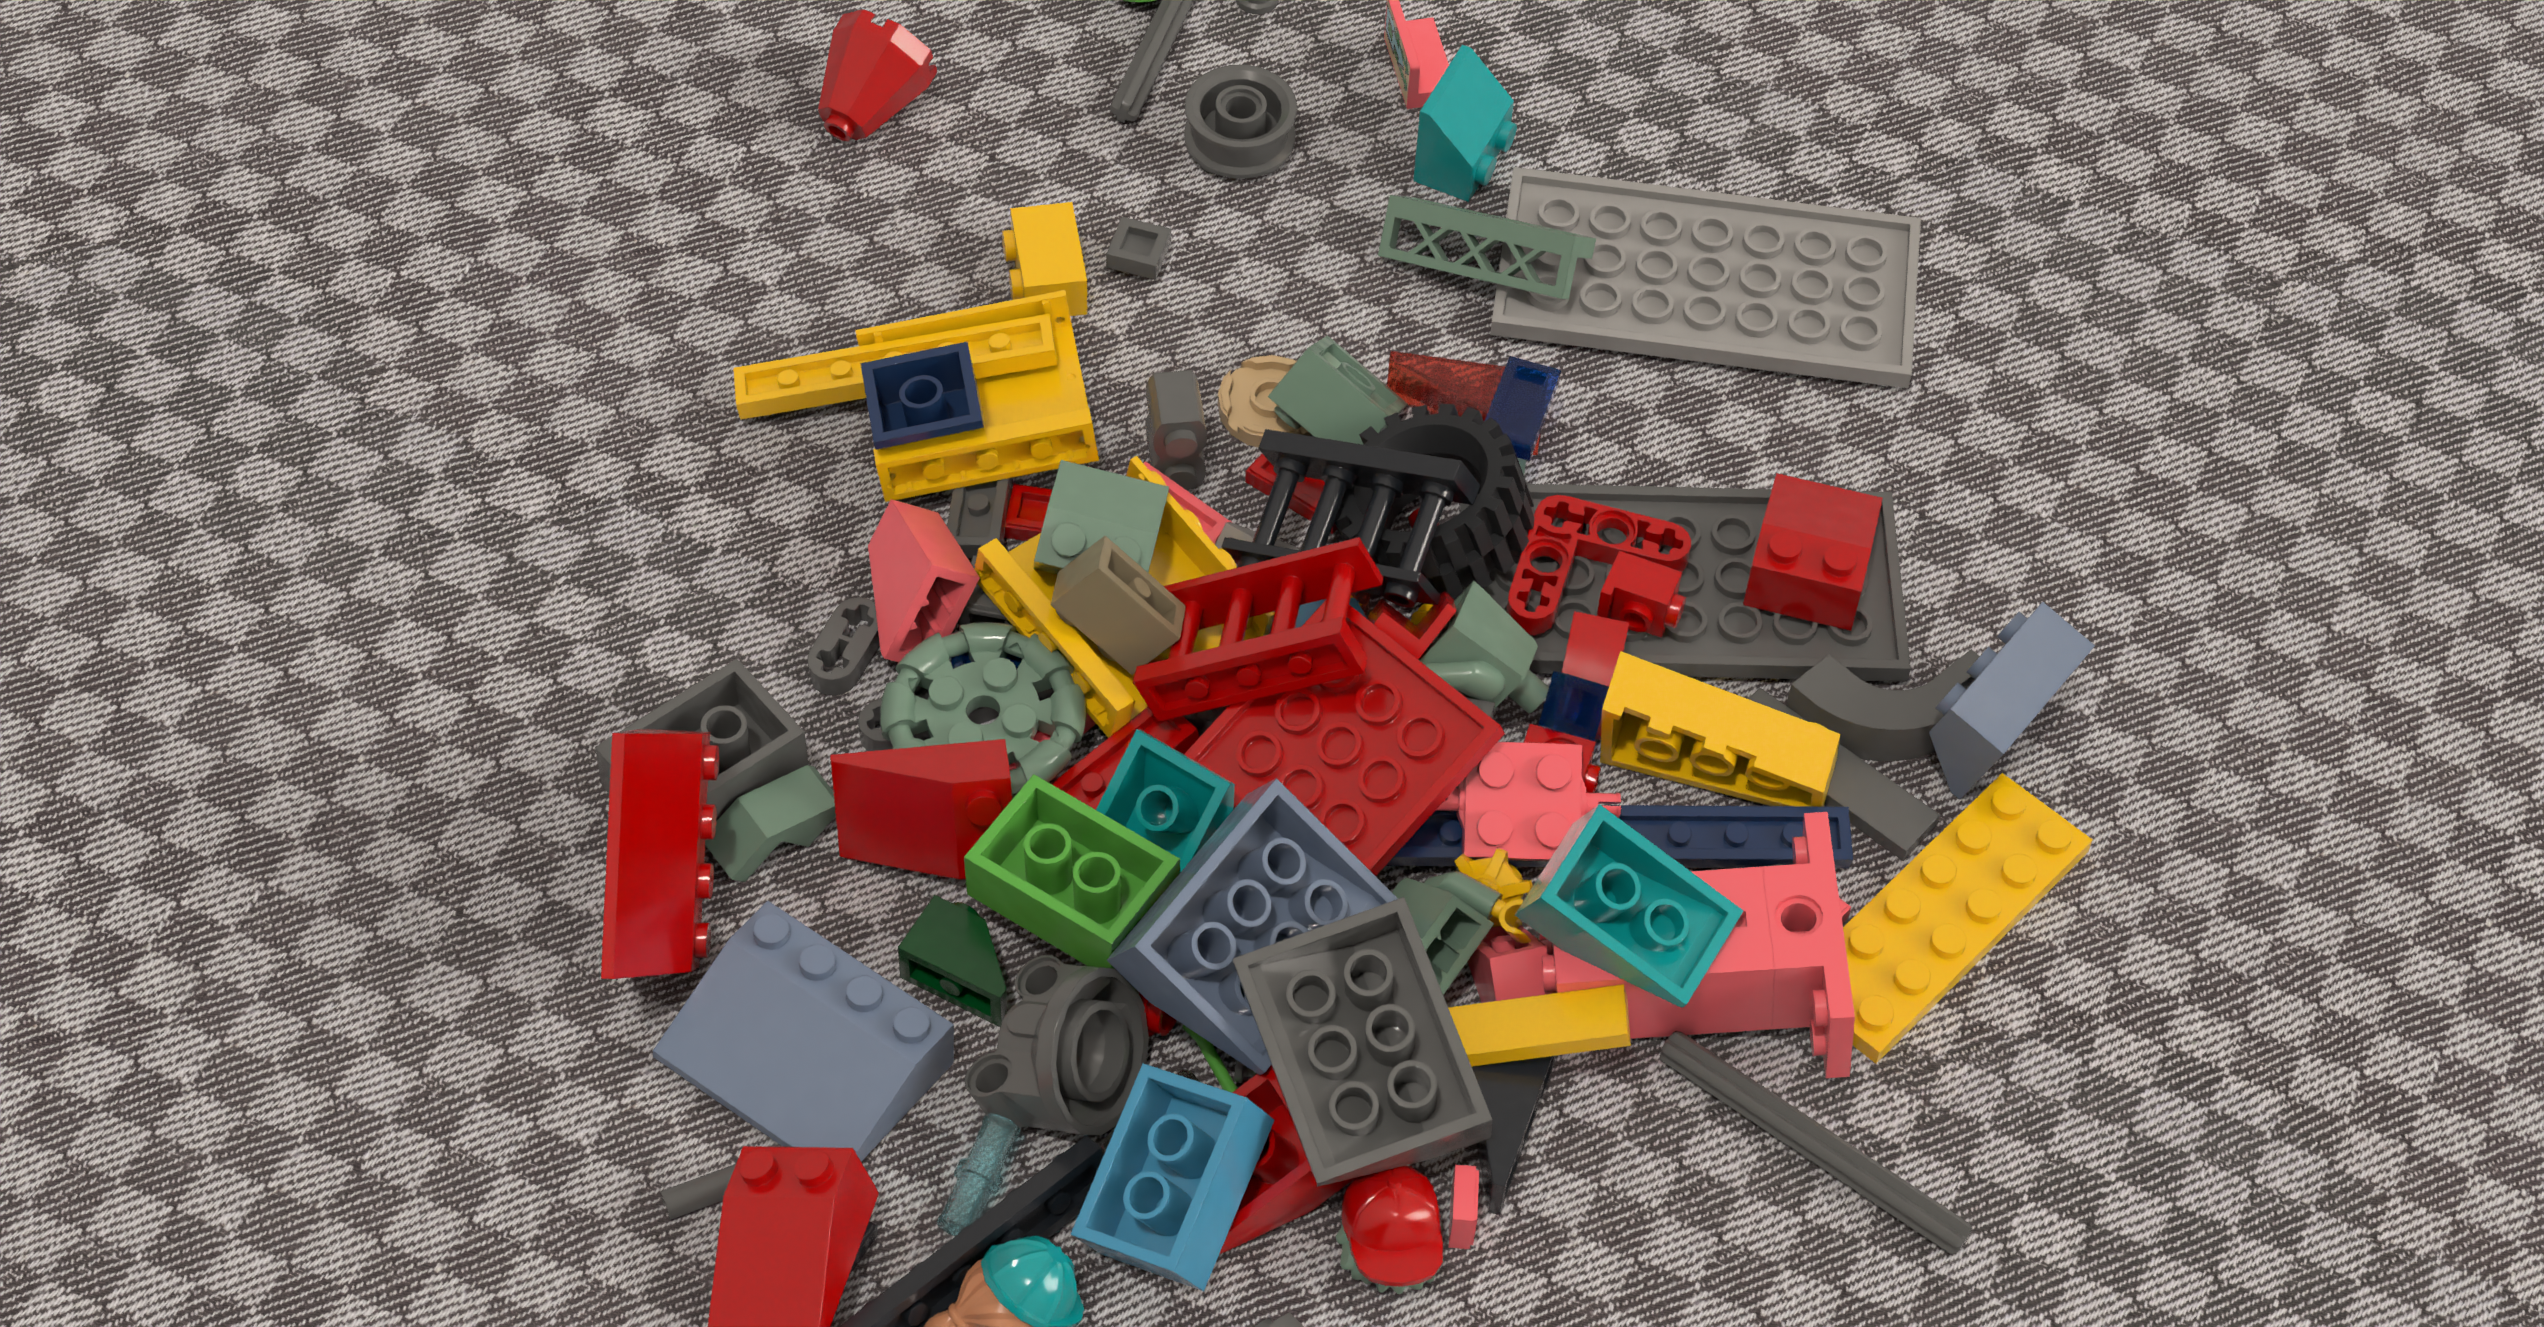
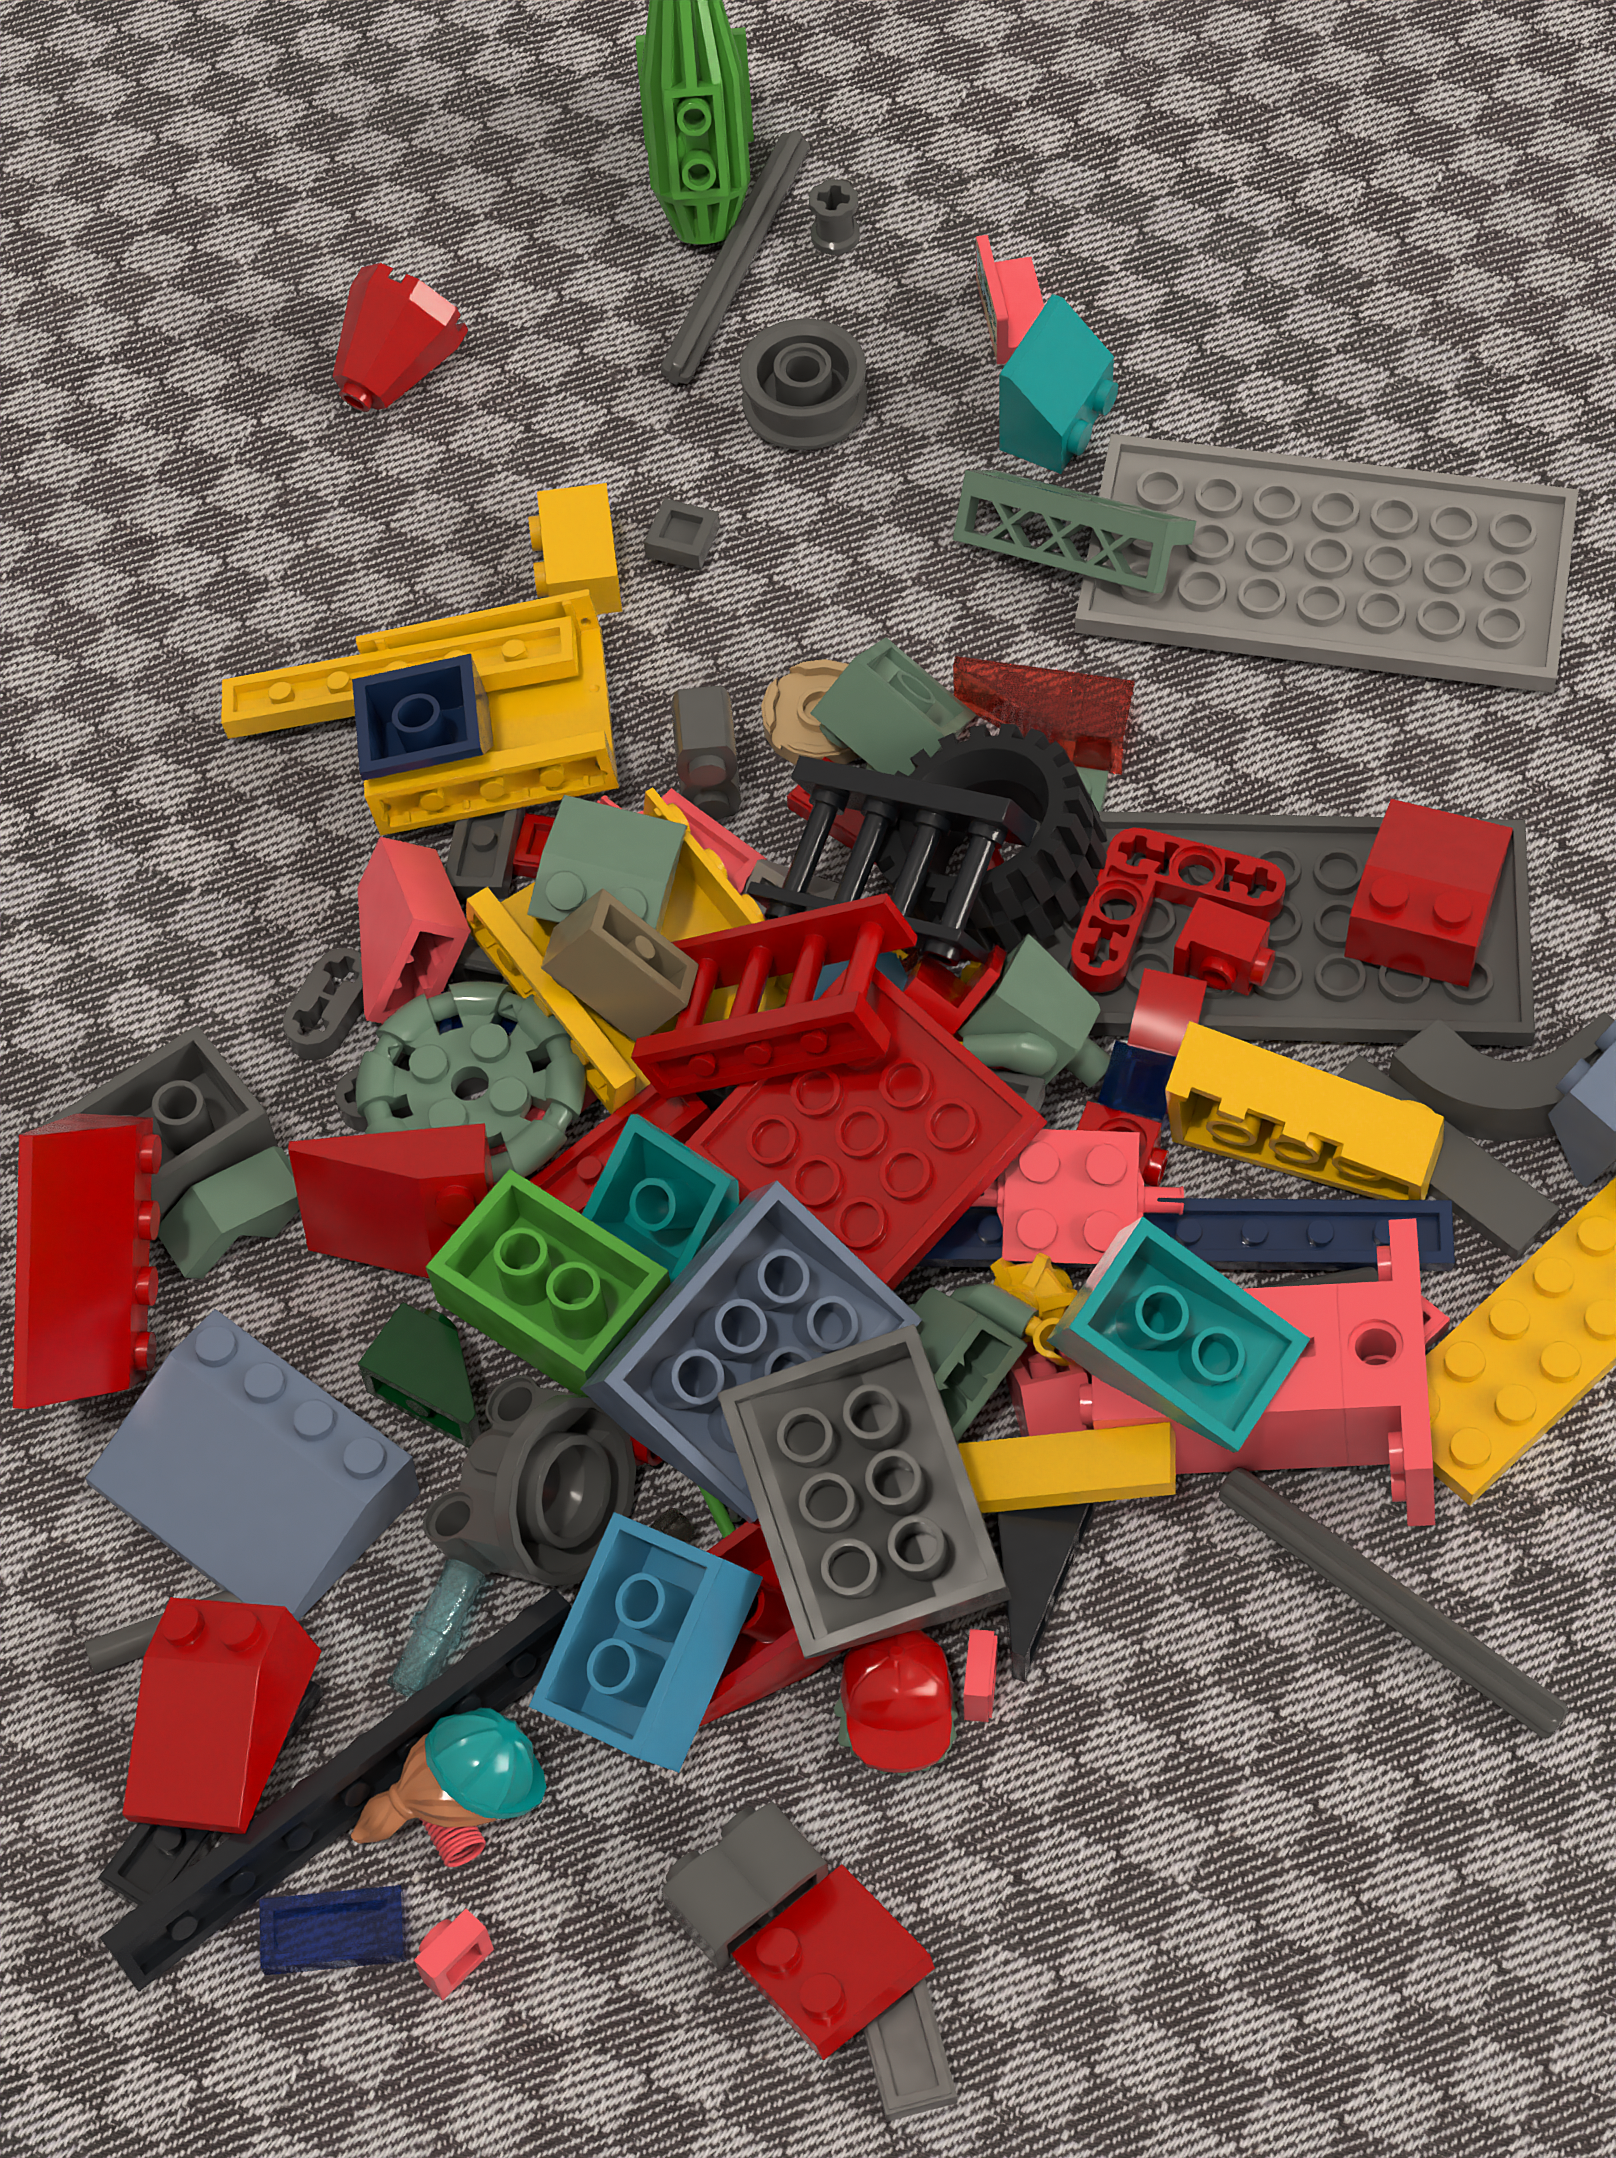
camera: 10 degrees right, 5 degrees up
(1524, 402) = (1100, 720): clear blue tile -> none

